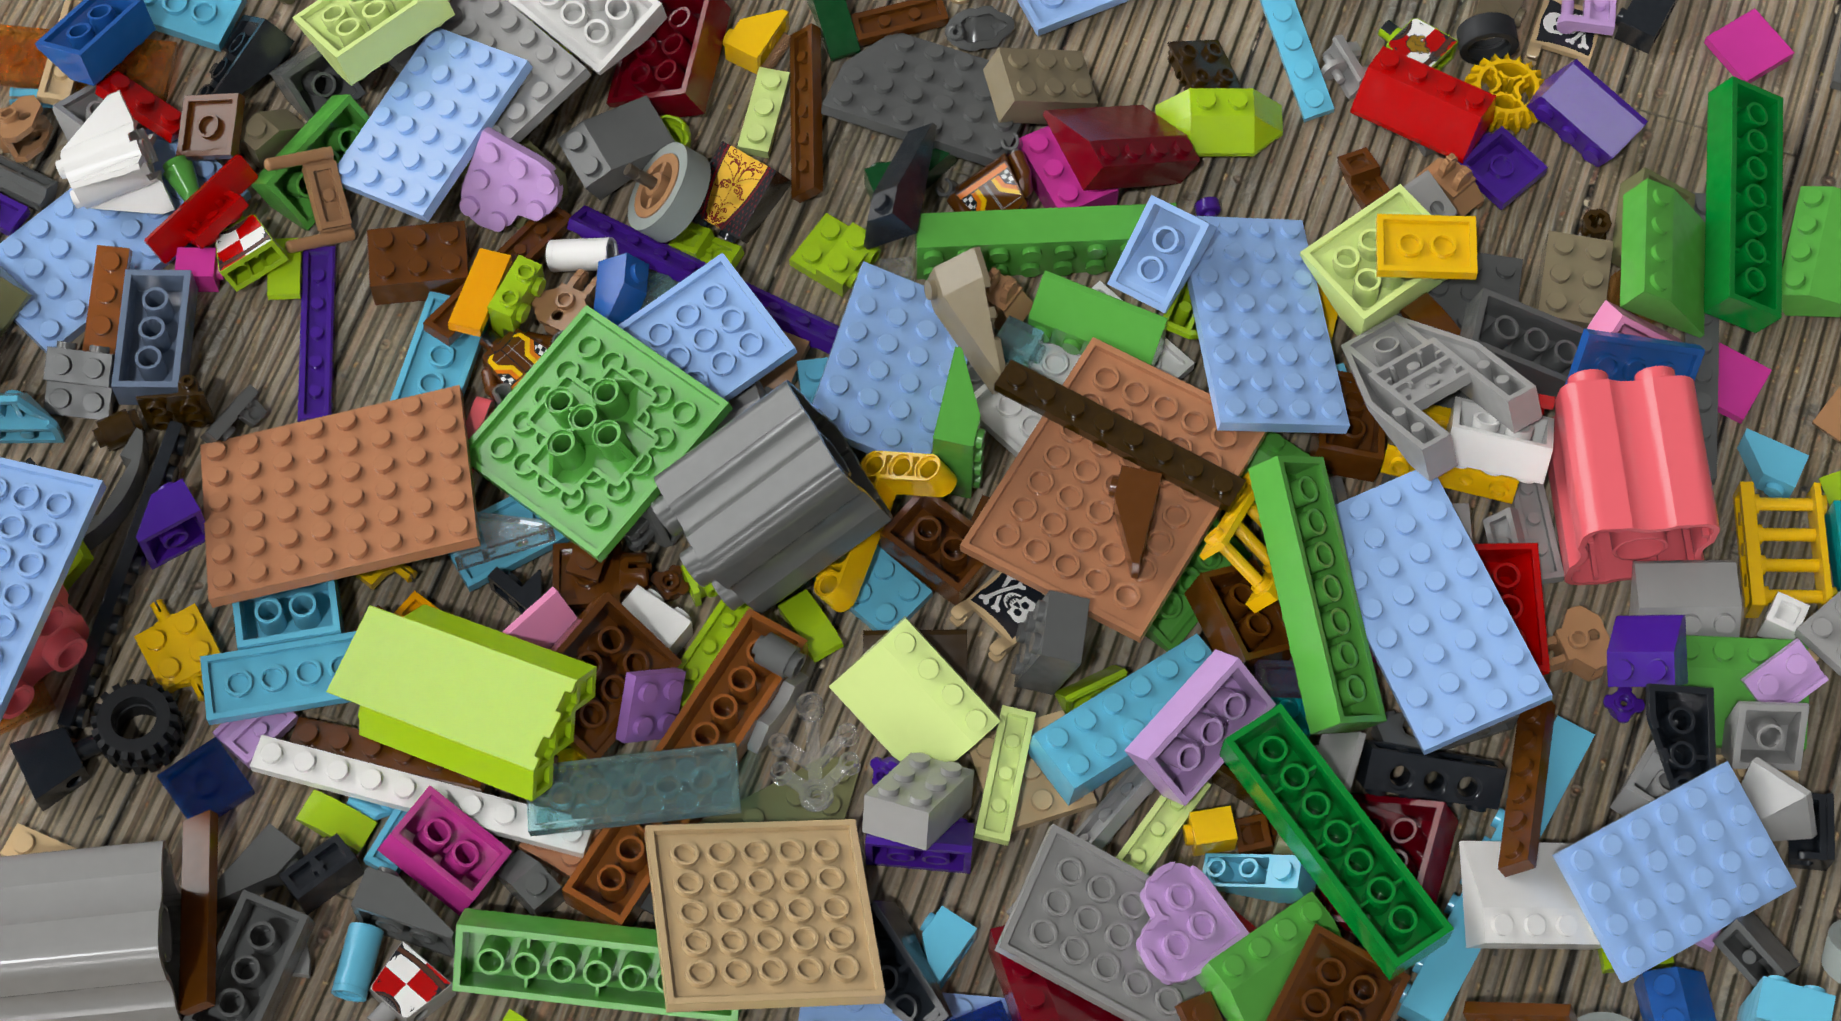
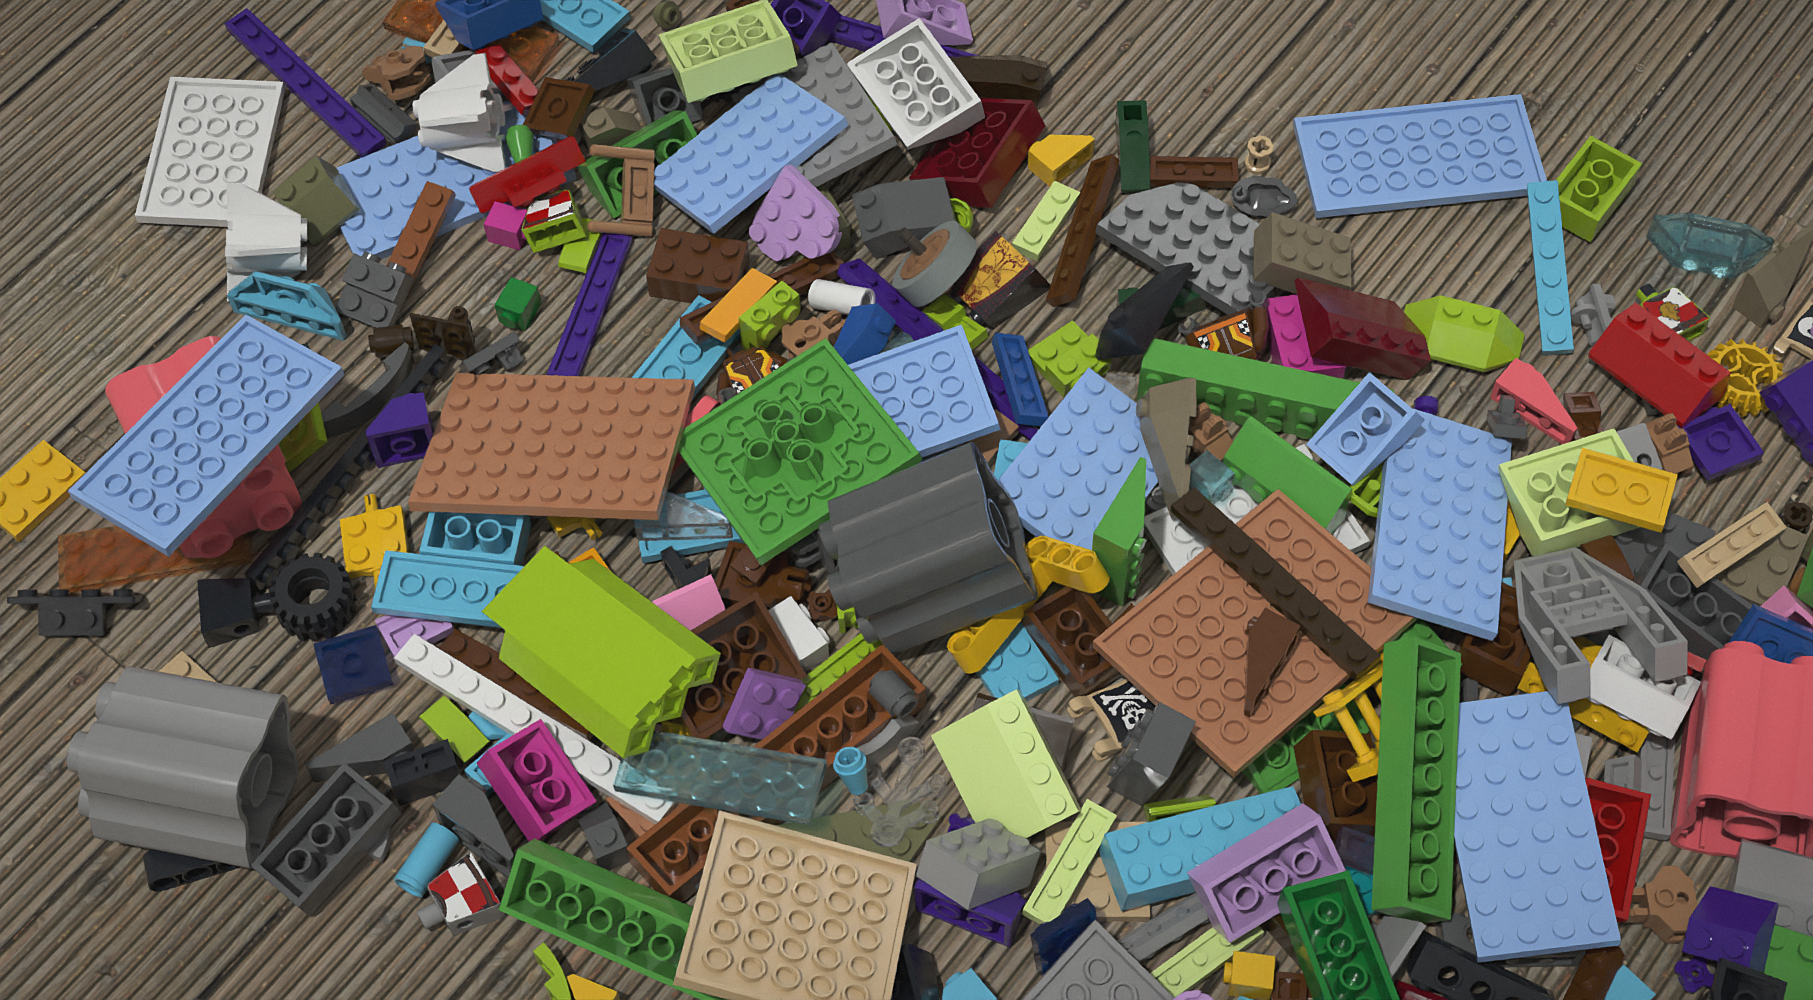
camera: 20 degrees right, 5 degrees down
(154, 333) = (450, 265): sand blue brick -> none
(198, 913) = (299, 773): reddish brown tile -> none
(240, 352) = (517, 304): none -> green brick
(761, 743) = (852, 769): none -> medium azure cone
(777, 52) = (1075, 173): medium nougat piece -> none
(794, 291) = (1019, 379): none -> blue plate
(811, 623) = (937, 677): lime slope -> none
(1017, 852) = (1055, 937): none -> clear blue plate
(1201, 64) = (1460, 278): dark brown hinge -> none
(1290, 202) = (1506, 421): none -> dark grey hinge
(1307, 171) = (1535, 401): none -> coral slope
(1484, 26) = (1739, 309): black tyre -> none
(1545, 272) = (1731, 544): none -> tan plate

